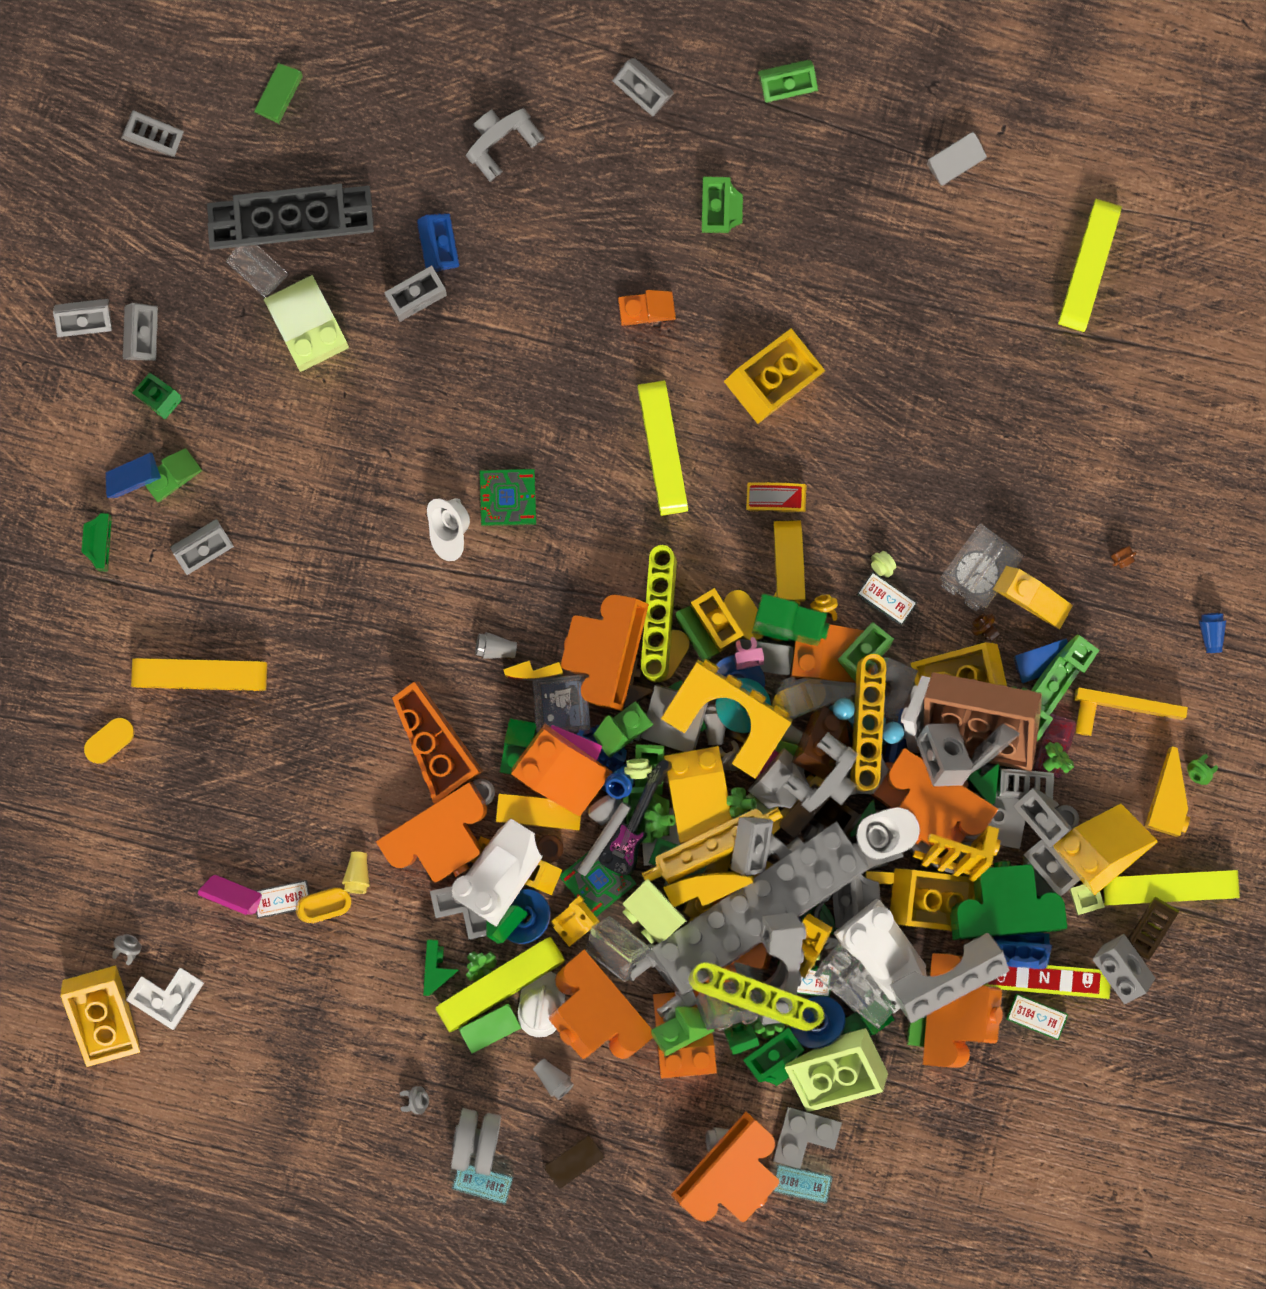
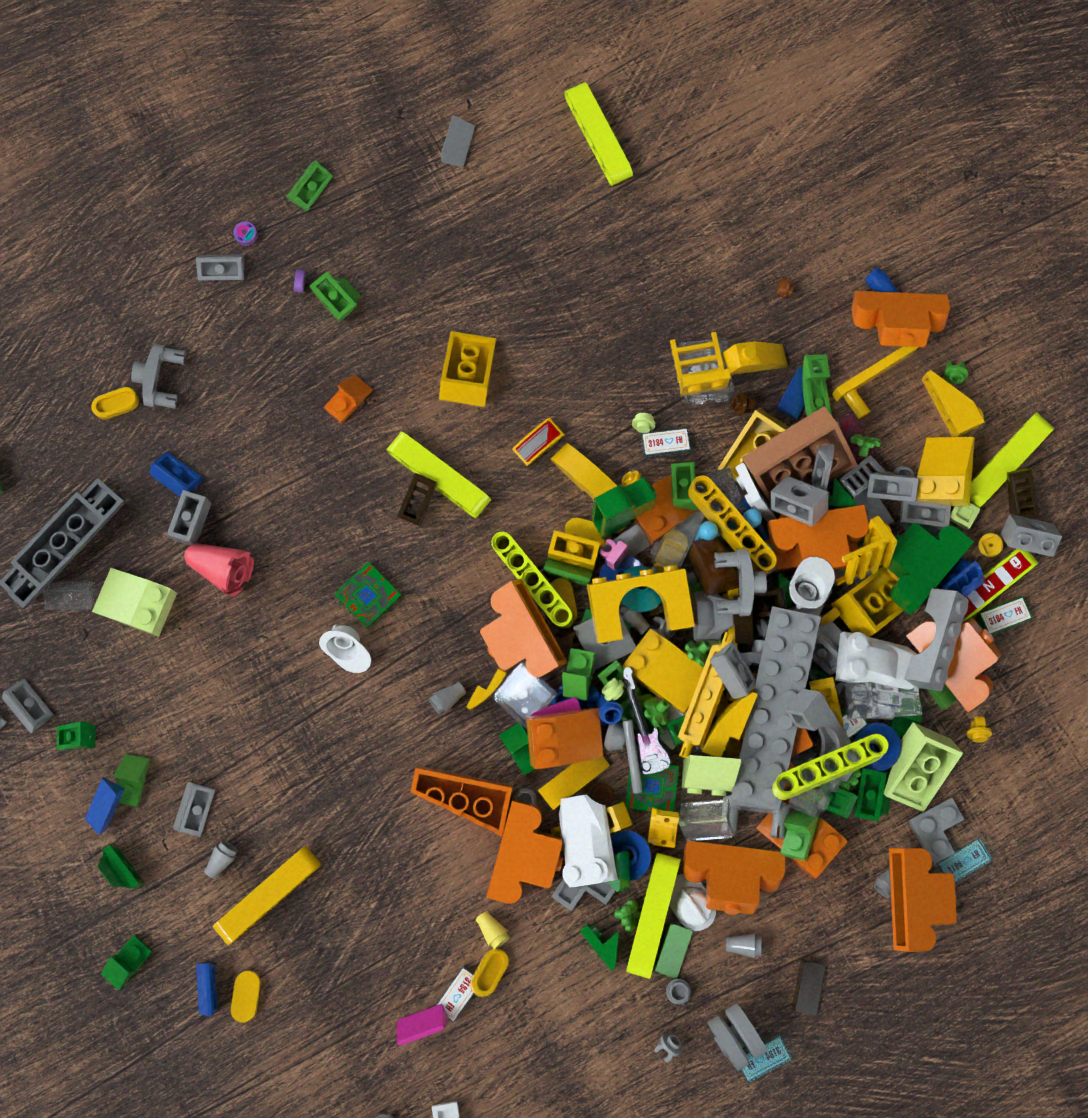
camera: 40 degrees left, 5 degrees down
(37, 623) = (126, 962): none -> green slope
(83, 705) = (207, 988): none -> blue slope
(189, 608) = (221, 857): none -> light grey cone
(405, 359) = (221, 566): none -> coral cone
(442, 130) = (115, 403): none -> yellow tile
(463, 1064) = (678, 991): none -> light grey plate
(604, 464) = (403, 514): none -> dark brown slope
(691, 75) = (245, 233): none -> tile
(699, 163) = (299, 282): none -> medium lavender tile
(917, 1091) = (978, 730): none -> yellow plate
(964, 574) = (703, 380): none -> yellow plate
(1084, 946) = (990, 545): none -> yellow tile
(1199, 677) = (901, 317): none -> orange brick

